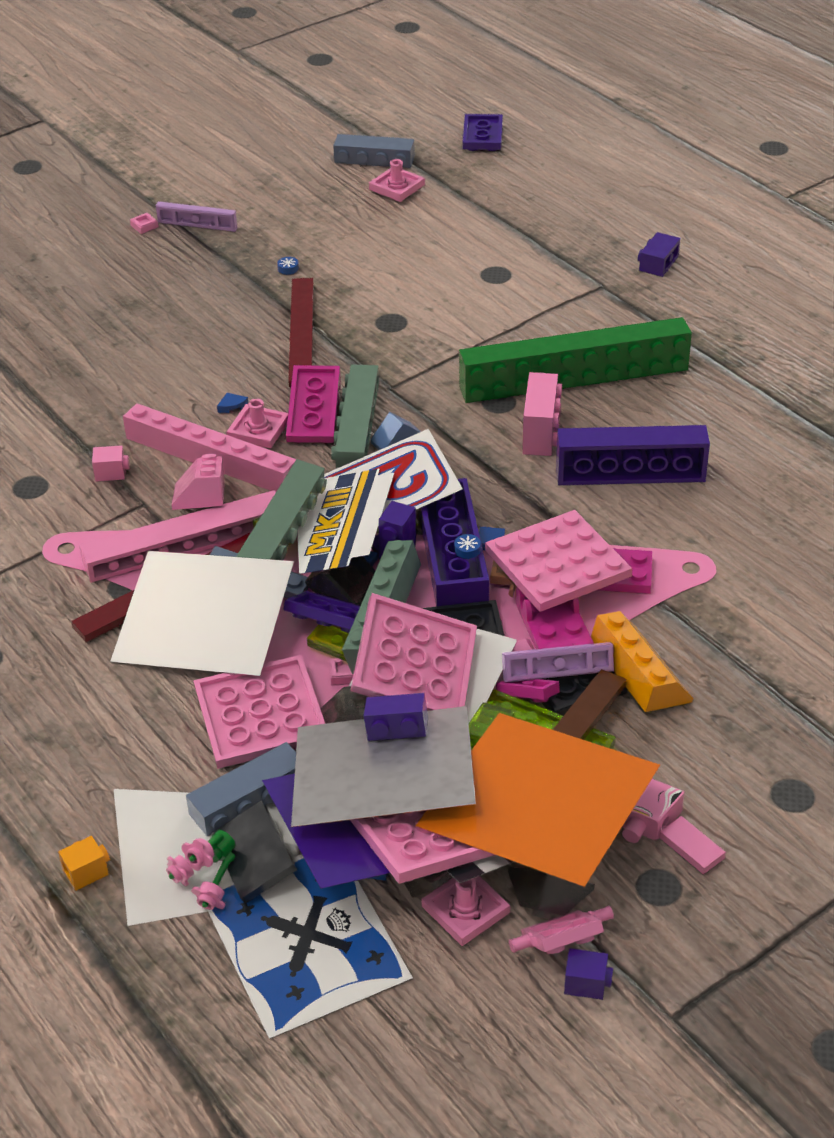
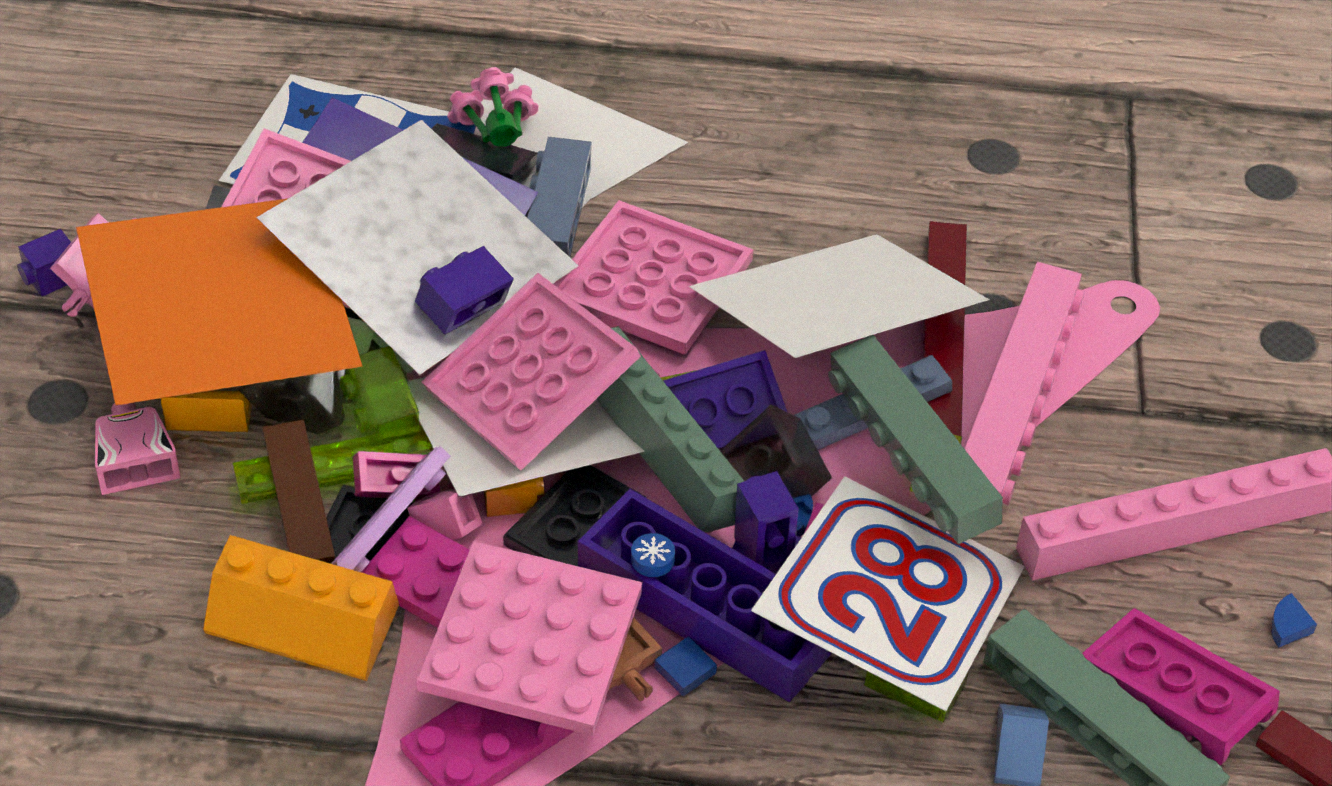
camera: 130 degrees right, 5 degrees up
(84, 862) = (609, 63): light orange brick -> none
(109, 463) = (1251, 410): bright pink brick -> none
(201, 484) = (1085, 440): bright pink slope -> none
(258, 424) = (1198, 593): bright pink plate -> none
(343, 520) = (870, 509): sticker -> none
(692, 845) = (52, 455): bright pink tile -> none

